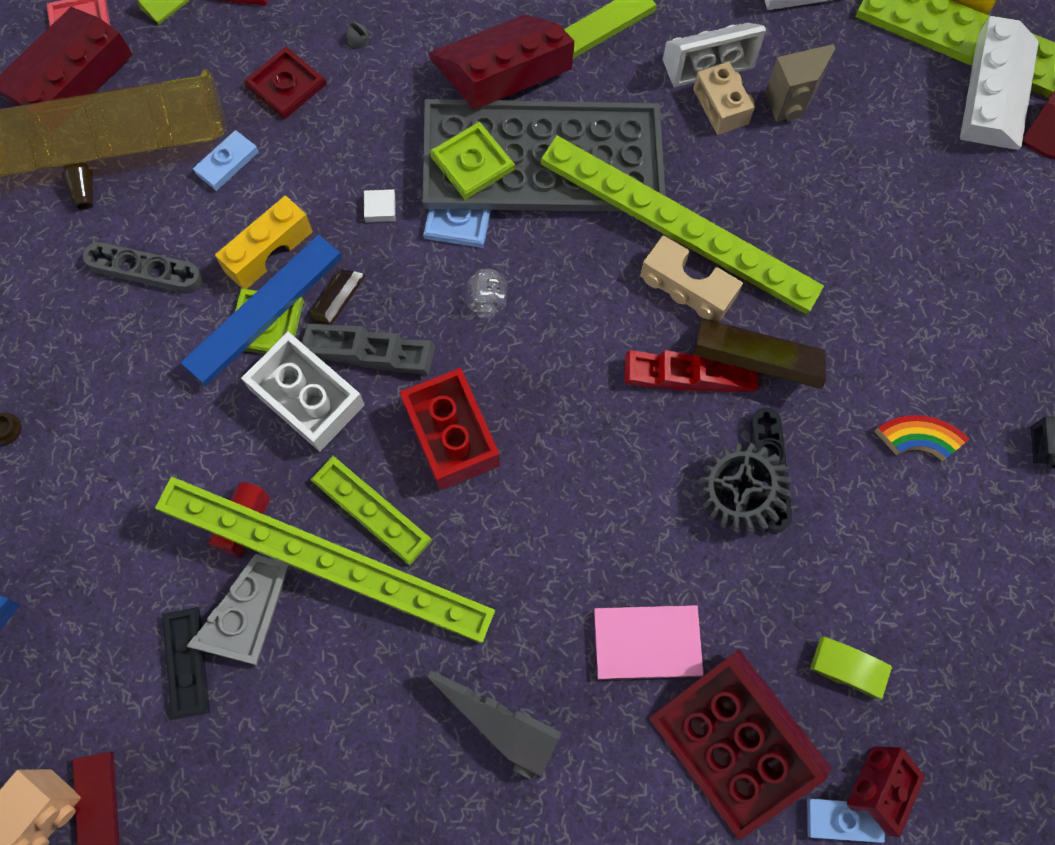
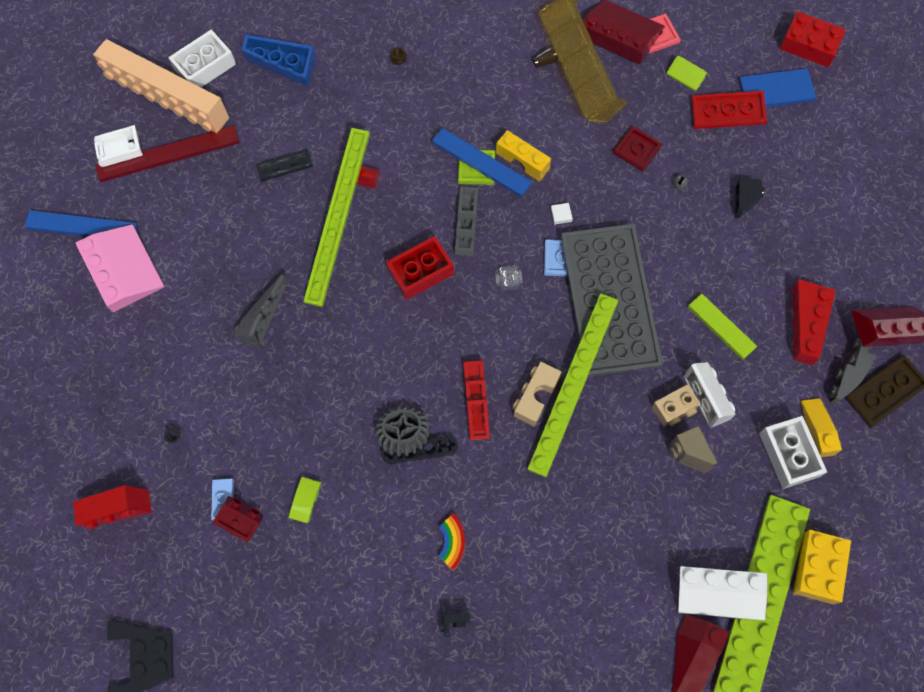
camera: 85 degrees right, 0 degrees up
(144, 264) = (498, 99): dark grey beam -> none
(225, 160) = (577, 127): light blue plate -> none
(245, 614) = (308, 186): light grey wing -> none
(303, 391) = (432, 190): white brick -> none
(336, 296) = (497, 199): dark brown tile -> none
(371, 510) = (372, 238): lime tile -> none
(472, 160) = (594, 255): lime tile -> none
(505, 59) = (675, 265): dark red slope -> none
(647, 642) = (311, 388): bright pink tile -> none
(741, 745) = (260, 440): dark red slope -> none
(761, 353) = (491, 437): dark brown tile -> none

